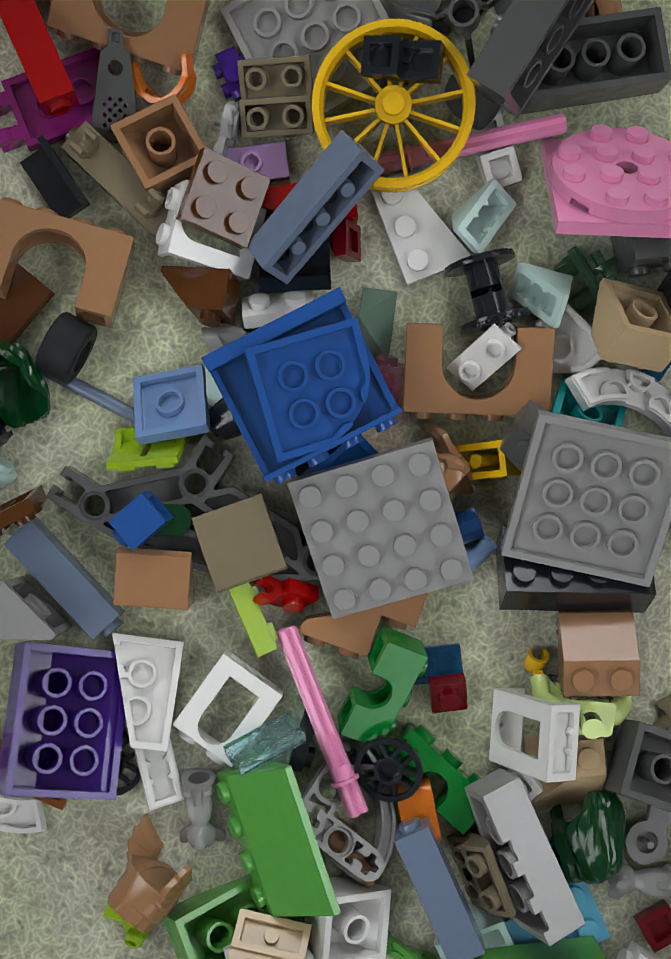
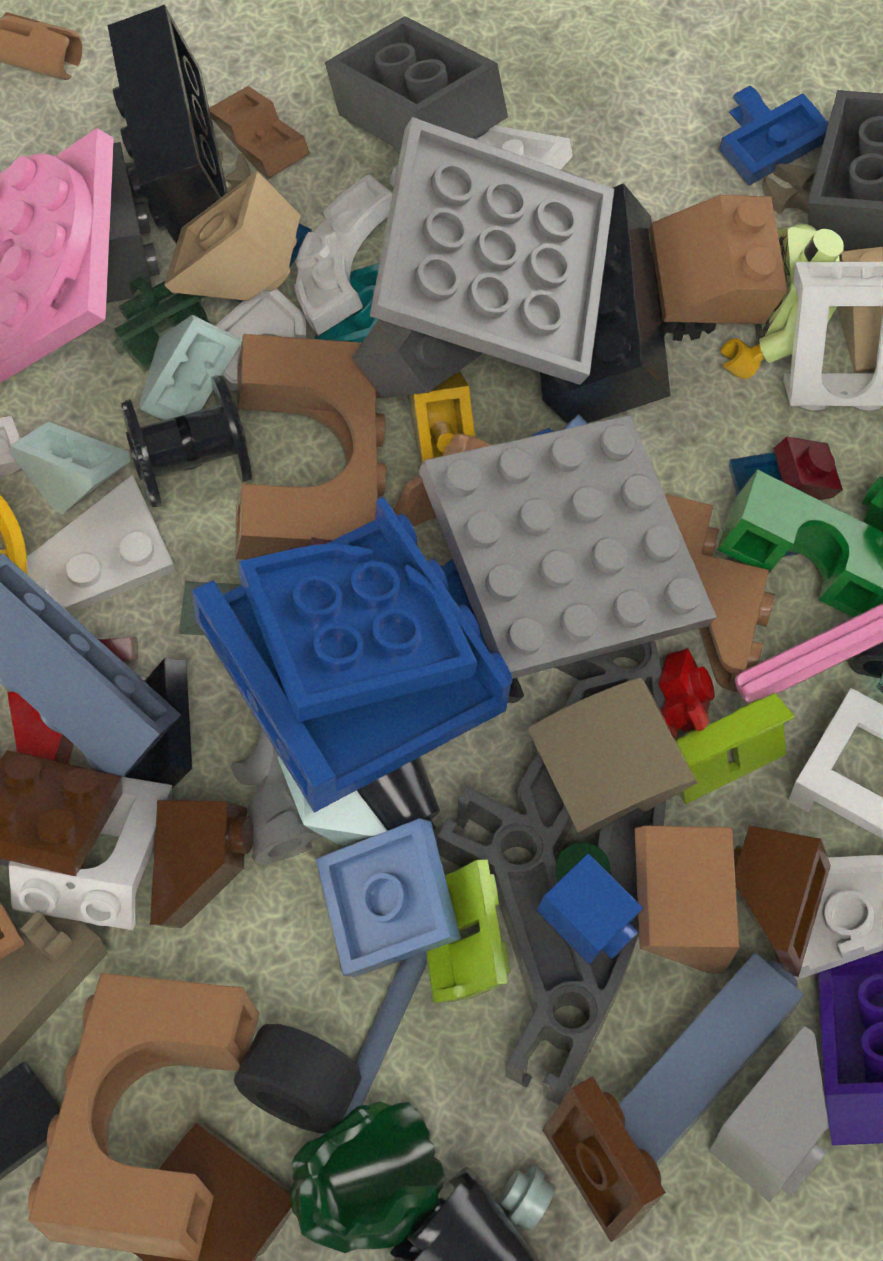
camera: 100 degrees left, 25 degrees down
(154, 633) = (781, 888): none -> reddish brown slope
(264, 308) = (218, 742): white plate -> none
(485, 355) = (286, 434): white hinge -> none

